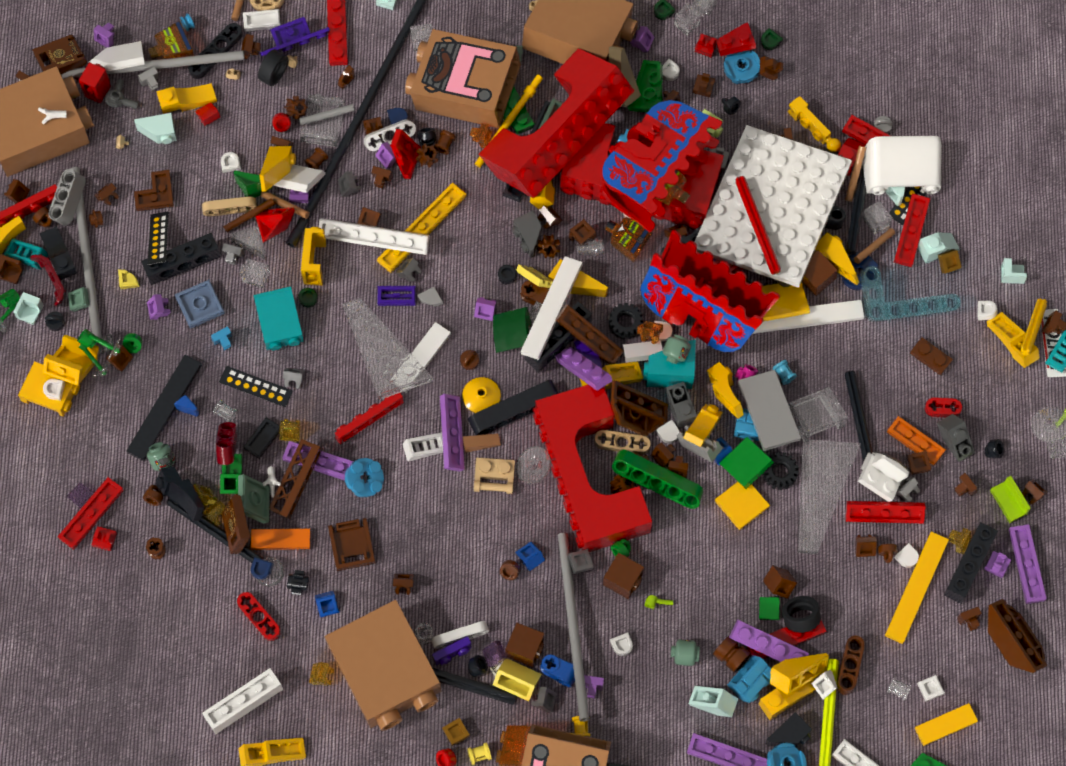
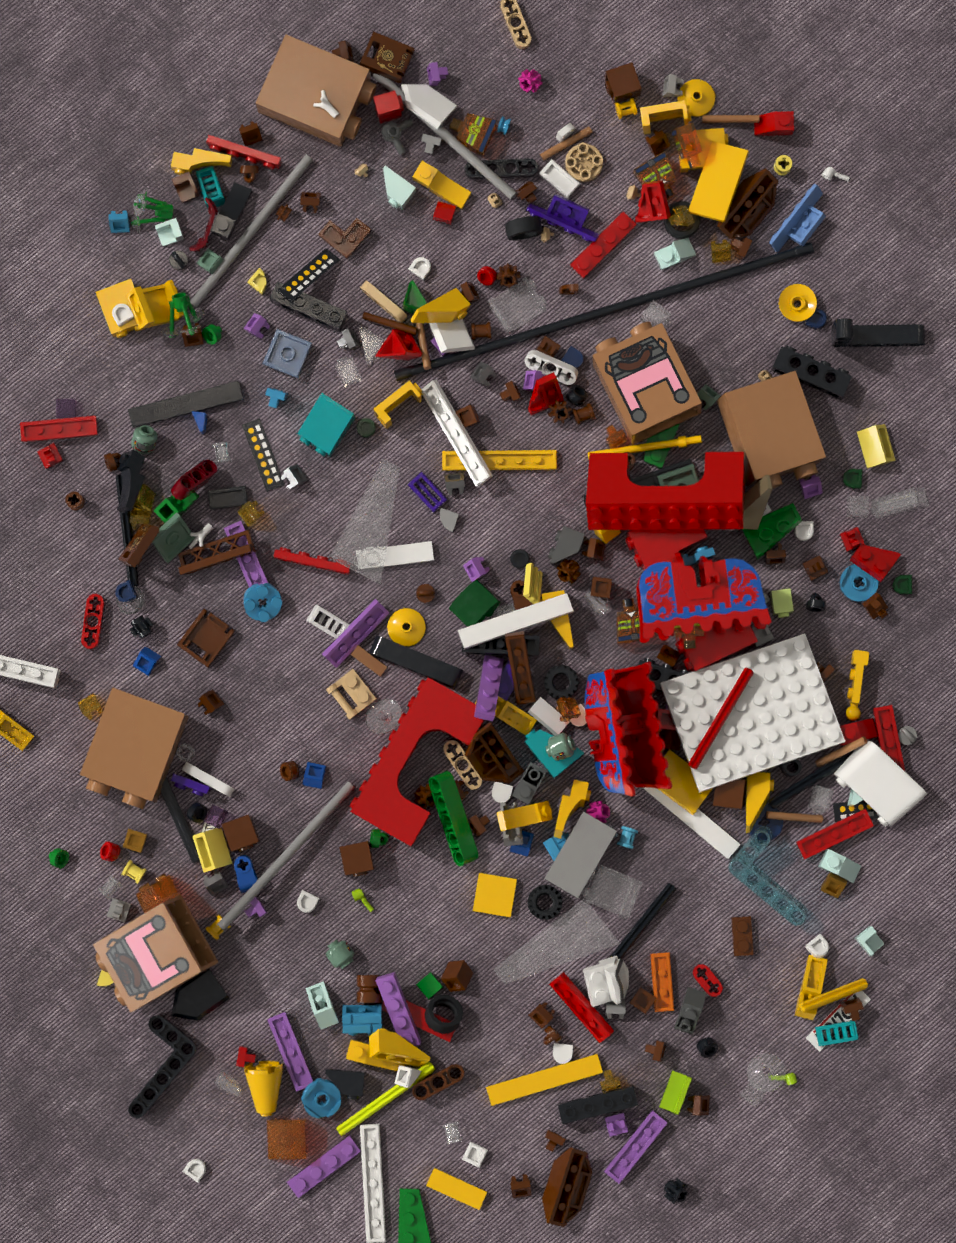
camera: 50 degrees right, 15 degrees up
(67, 197) = (268, 182): light grey beam -> none
(280, 539) = (163, 583): orange tile -> none
(327, 114) = (524, 304): light grey bar -> none
(580, 561) = (340, 817): flat silver tile -> none
(663, 454) = (478, 805): reddish brown tile -> none
(746, 462) = (526, 872): green tile -> none
(987, 675) = (521, 1188): none -> reddish brown tile

